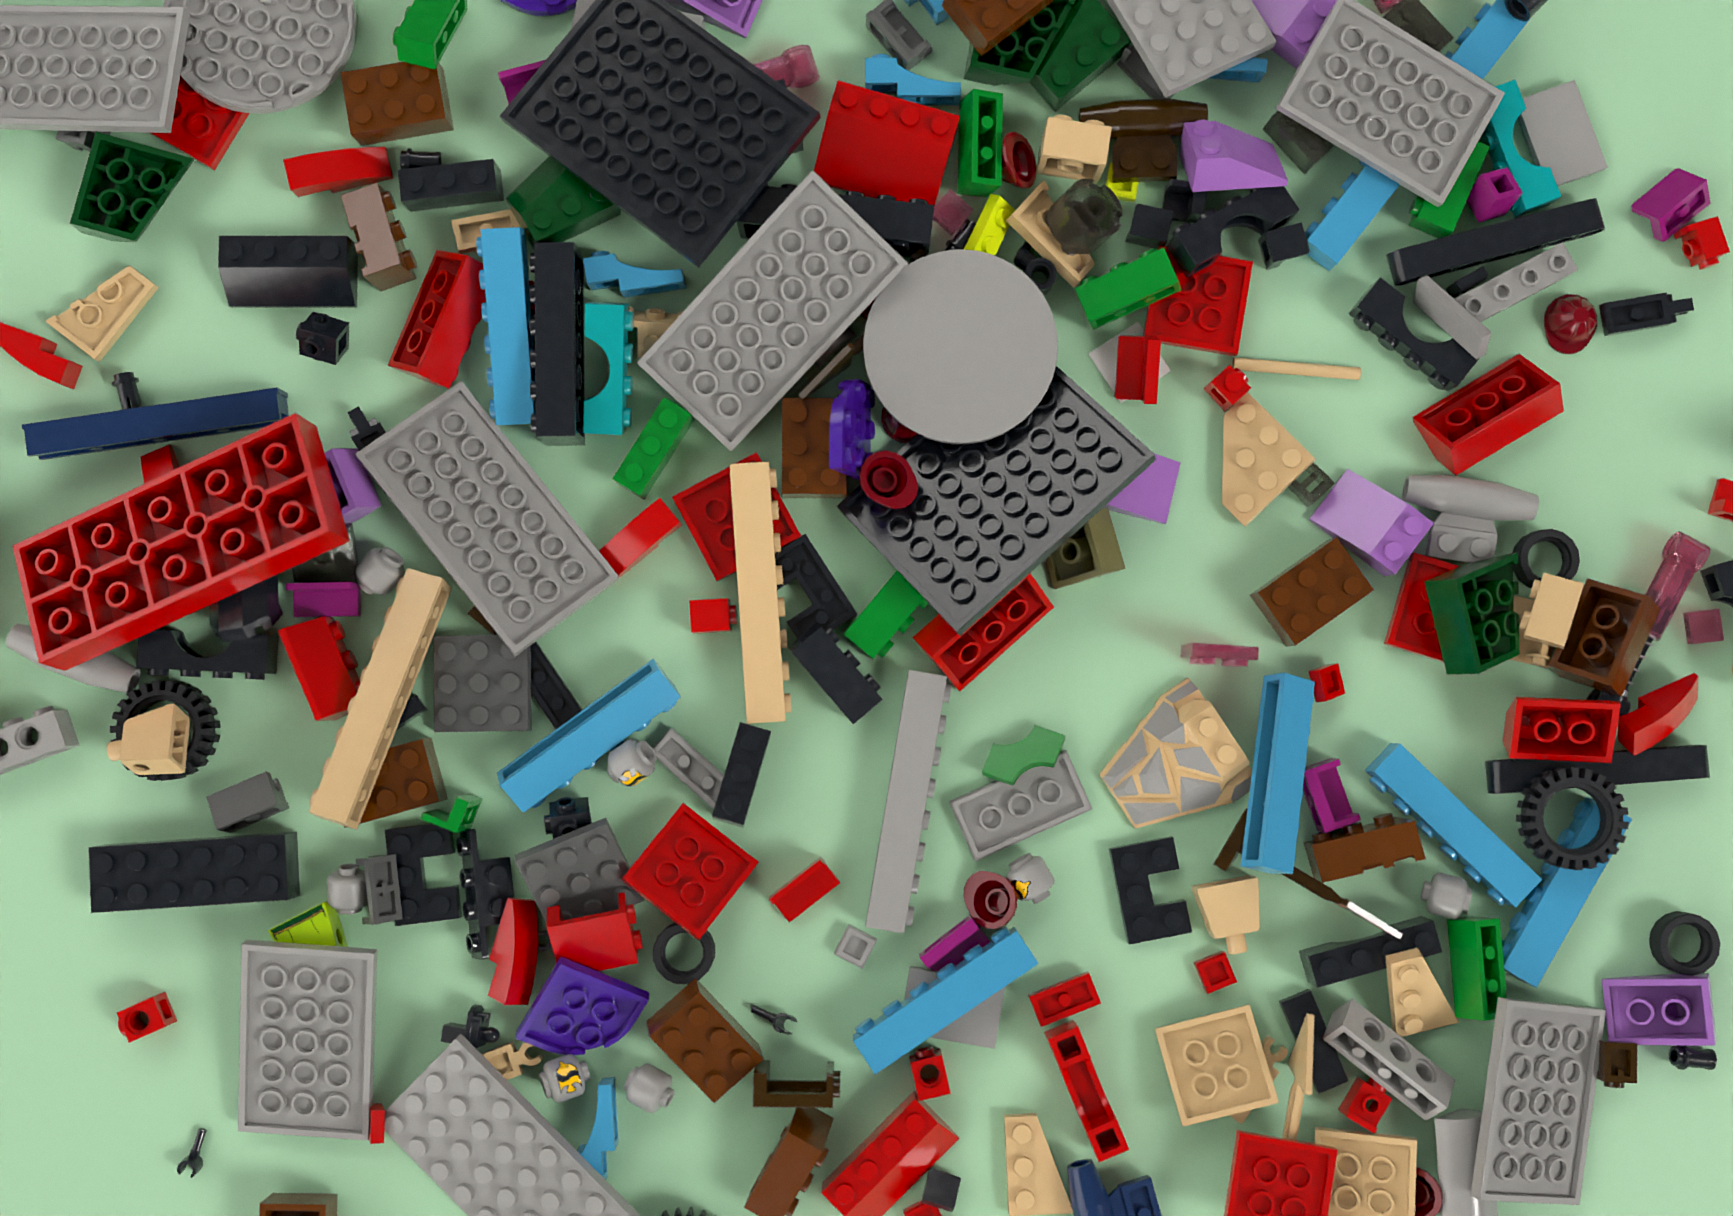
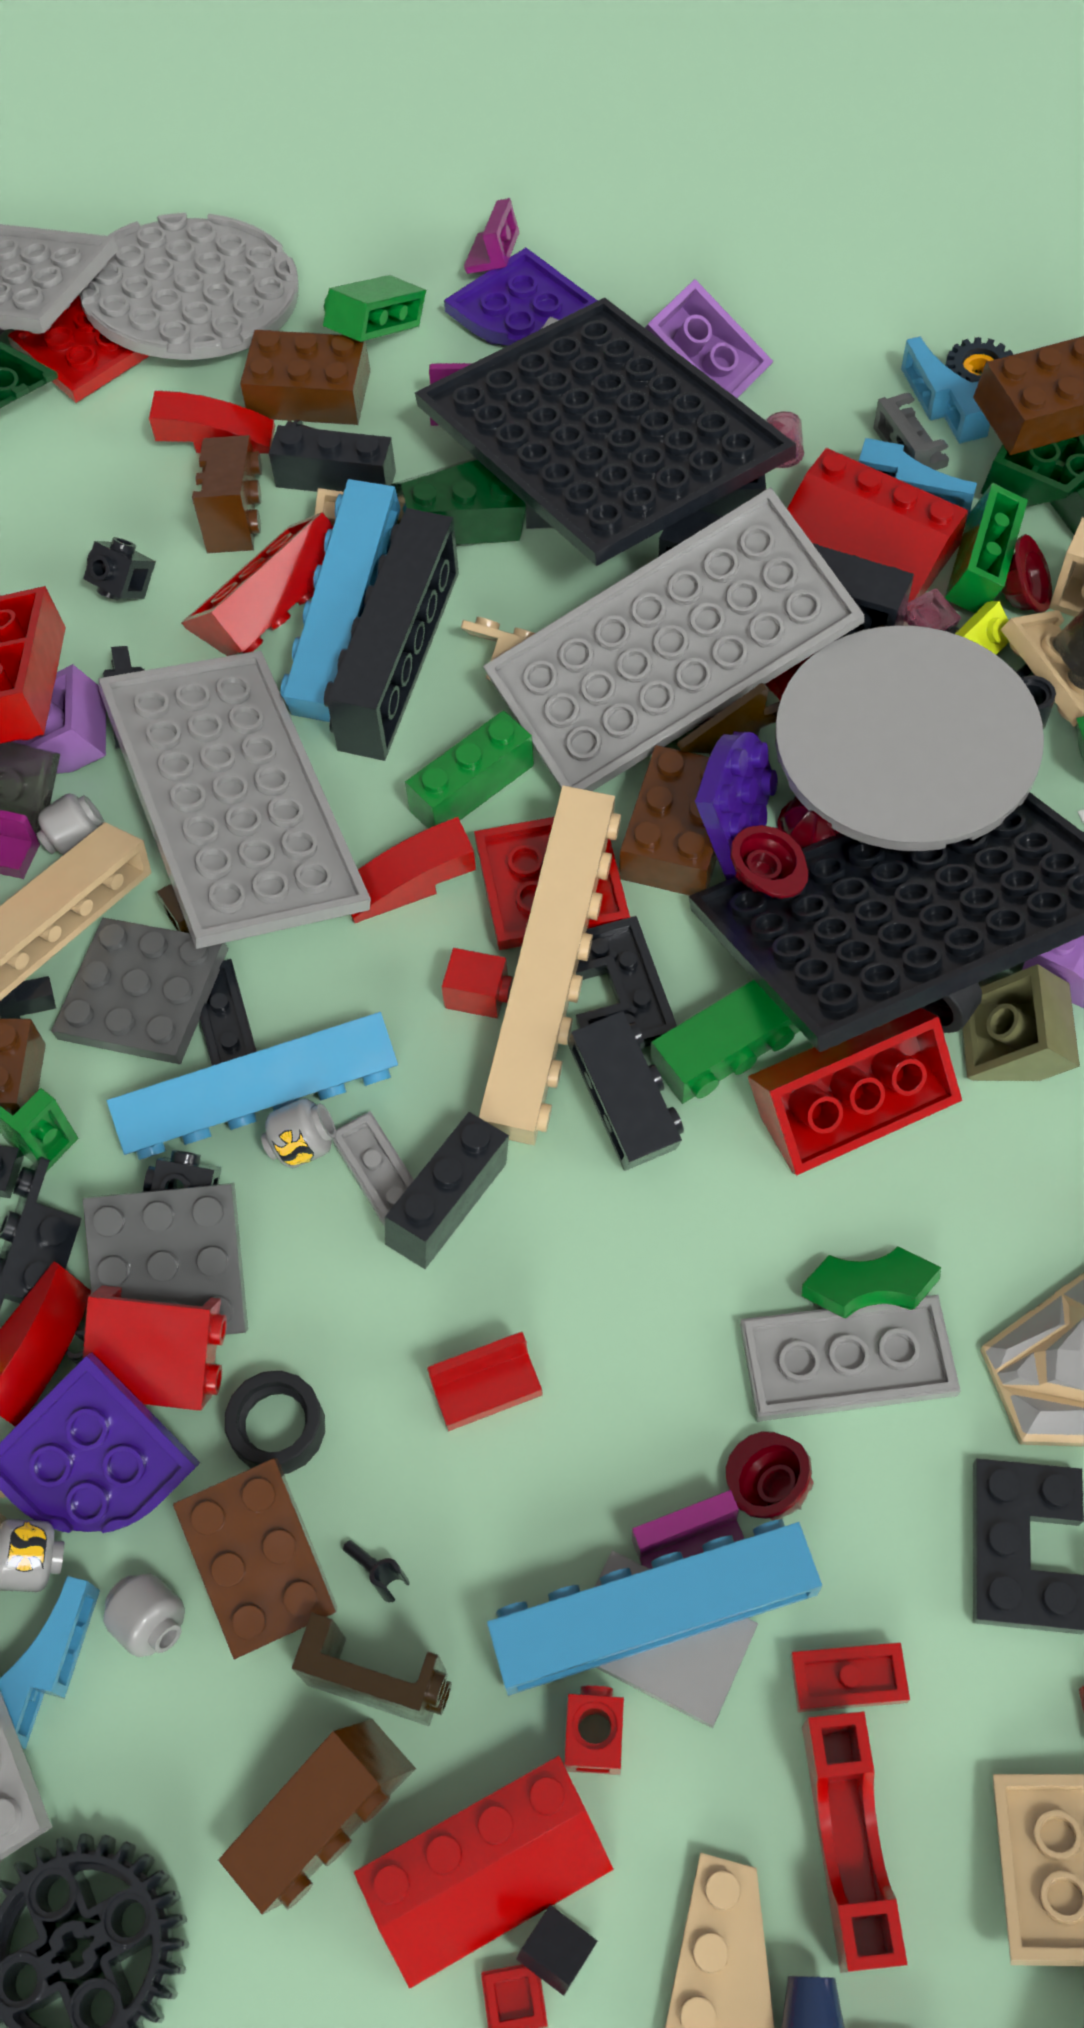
camera: 25 degrees right, 25 degrees down
(289, 271) = (107, 496): black slope -> none
(605, 271) = (513, 599): dark azure slope -> none
(609, 327) = (428, 715): teal arch -> none
(690, 871) = (326, 1302): red plate -> none
(855, 946) = (536, 1495): light grey tile -> none
(906, 801) = (673, 1304): light grey brick -> none
(1030, 878) = (840, 1462): light grey head -> none

